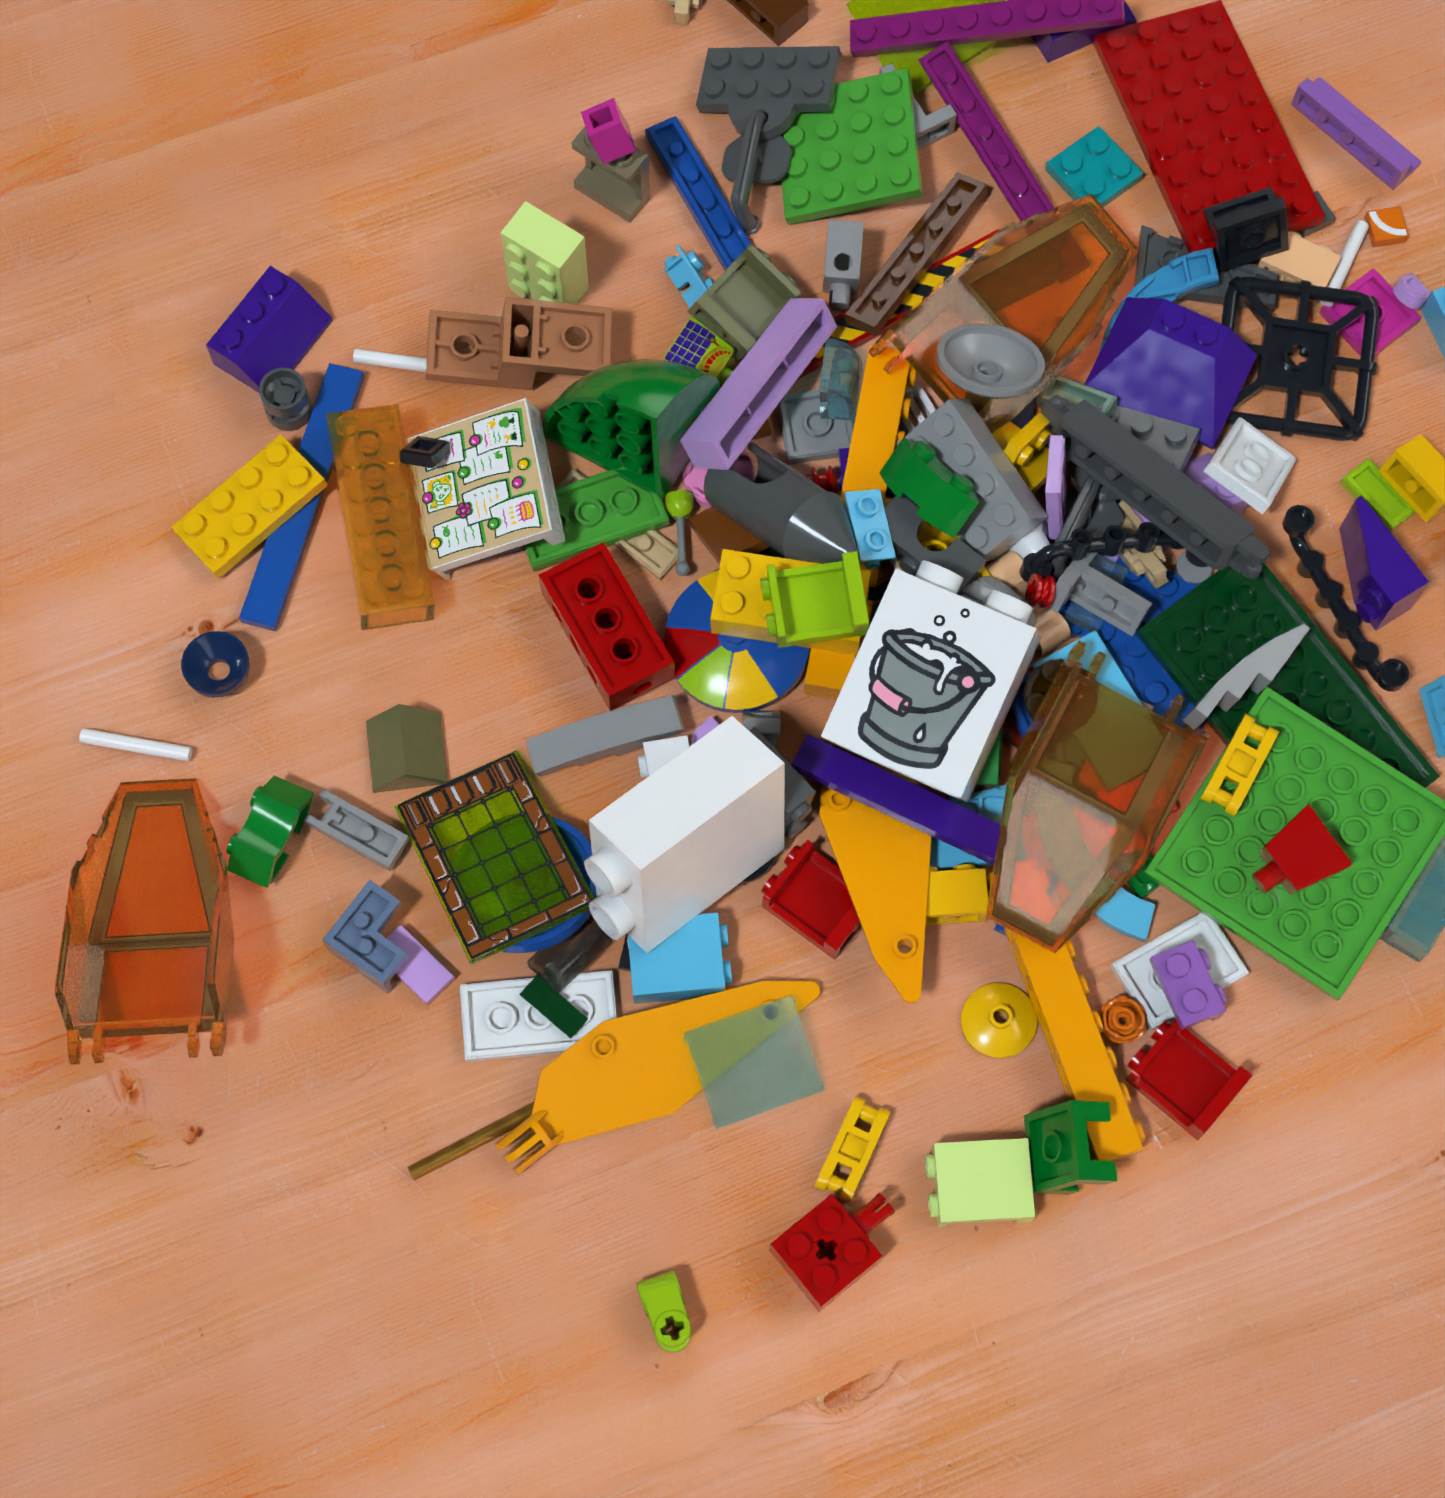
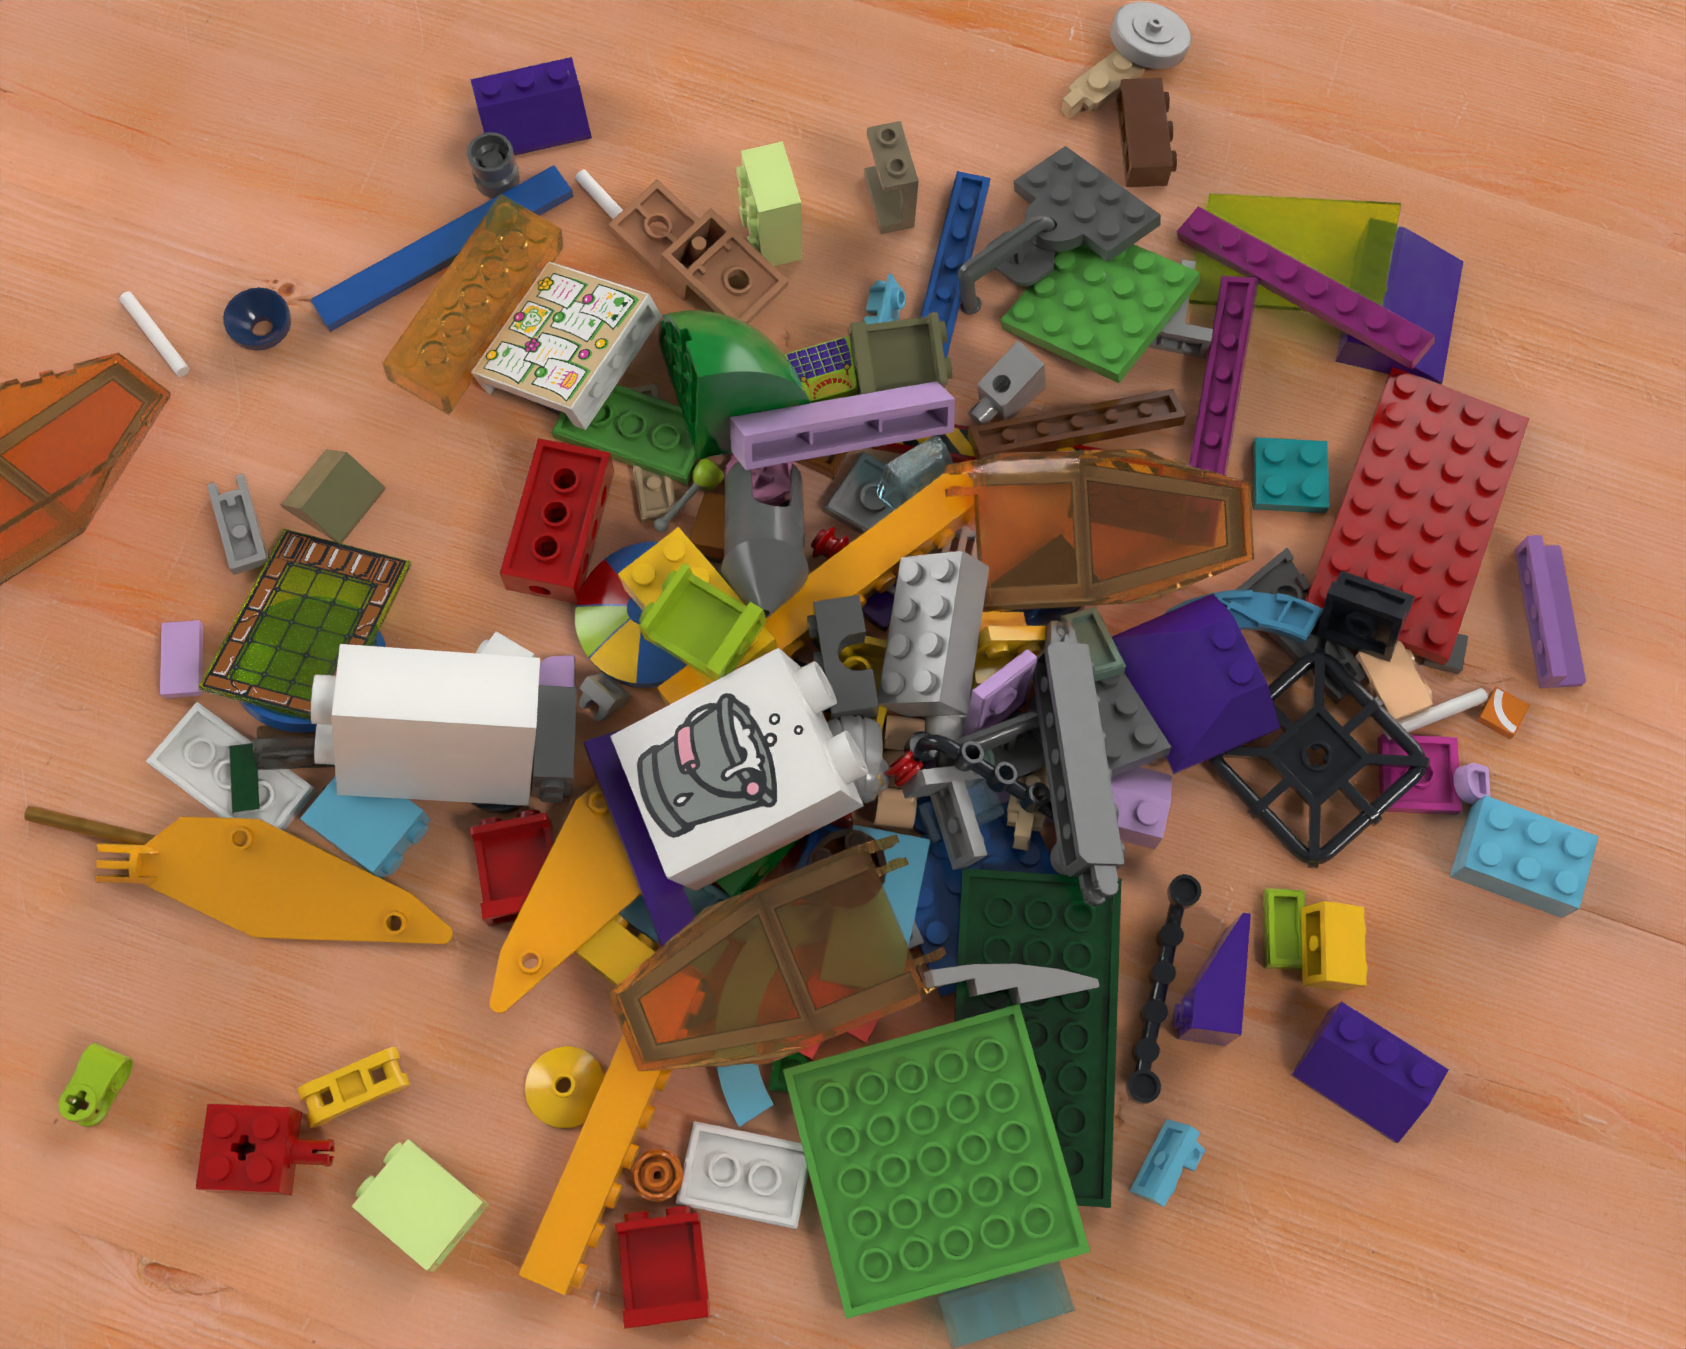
camera: 40 degrees right, 0 degrees up
(249, 506) = (395, 224): yellow plate -> none
(274, 816) = (184, 466): green brick -> none
(358, 938) = (153, 600): sand blue panel -> none
(424, 452) = (542, 278): black tile -> none
(604, 734) = (480, 603): light grey slope -> none
(608, 131) = (892, 134): dark pink brick -> none
(754, 1061) = (346, 951): clear light blue piece -> none
(869, 527) = (808, 602): medium azure hinge -> none
(942, 496) = (884, 609): green brick -> none
(990, 360) = (1035, 550): light grey dish -> none
(1061, 1147) = (494, 1232): green panel -> none
(1188, 984) = (727, 1193): medium lavender bracket -> none
(1239, 764) = (934, 1049): yellow plate -> none
(1250, 465) = (1187, 812): white tile -> none
(1300, 855) = (913, 1169): red torso -> none

